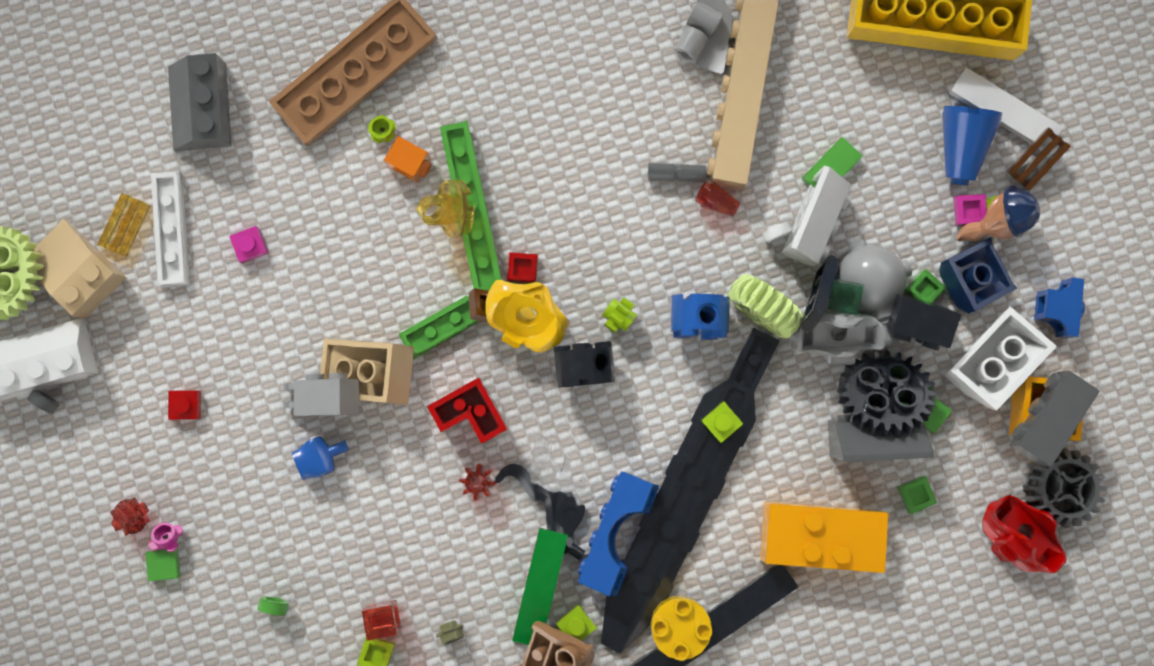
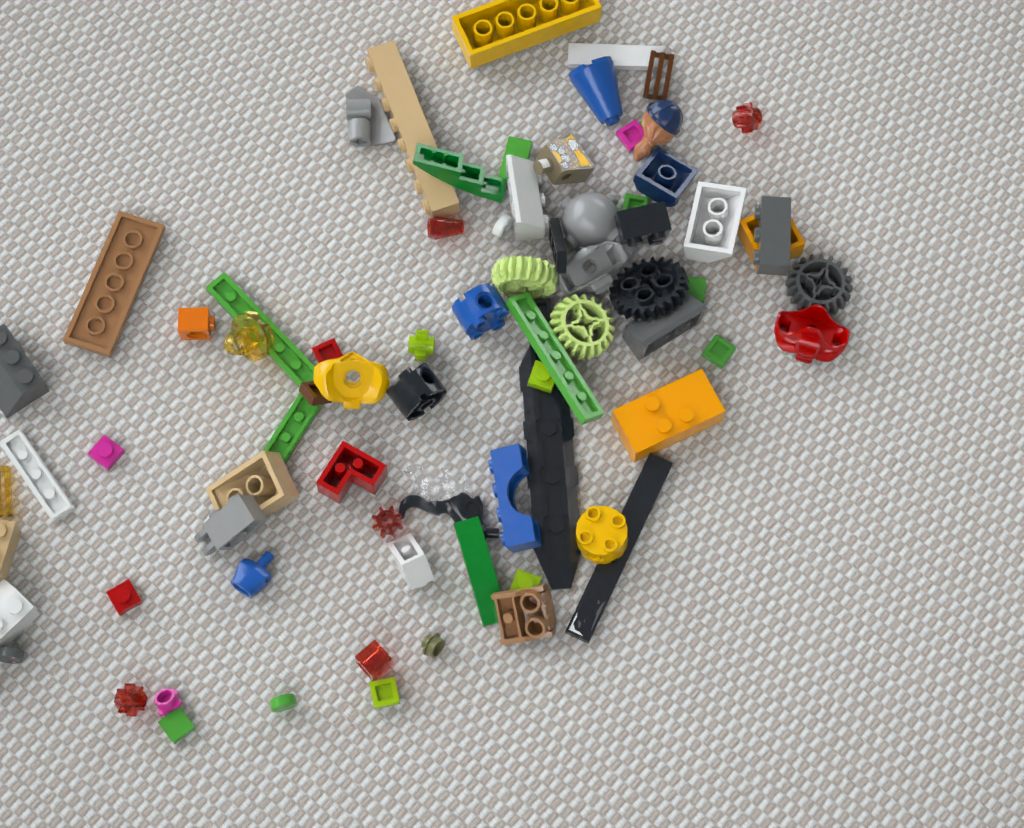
camera: 30 degrees left, 15 degrees down
(375, 125) = (161, 308): lime plate -> none
(478, 535) = (411, 561): none -> white slope
(673, 172) = (405, 224): dark grey piece -> none
(743, 415) = (555, 358): none -> bright green plate
(764, 152) = (462, 175): none -> green slope
(800, 370) = (585, 318): none -> yellowish green gear
(846, 296) = (577, 236): clear green plate -> none
(882, 199) = (564, 161): none -> dark tan torso
(1062, 307) = (738, 166): blue brick -> none
(1103, 260) = (747, 117): none -> clear red gear

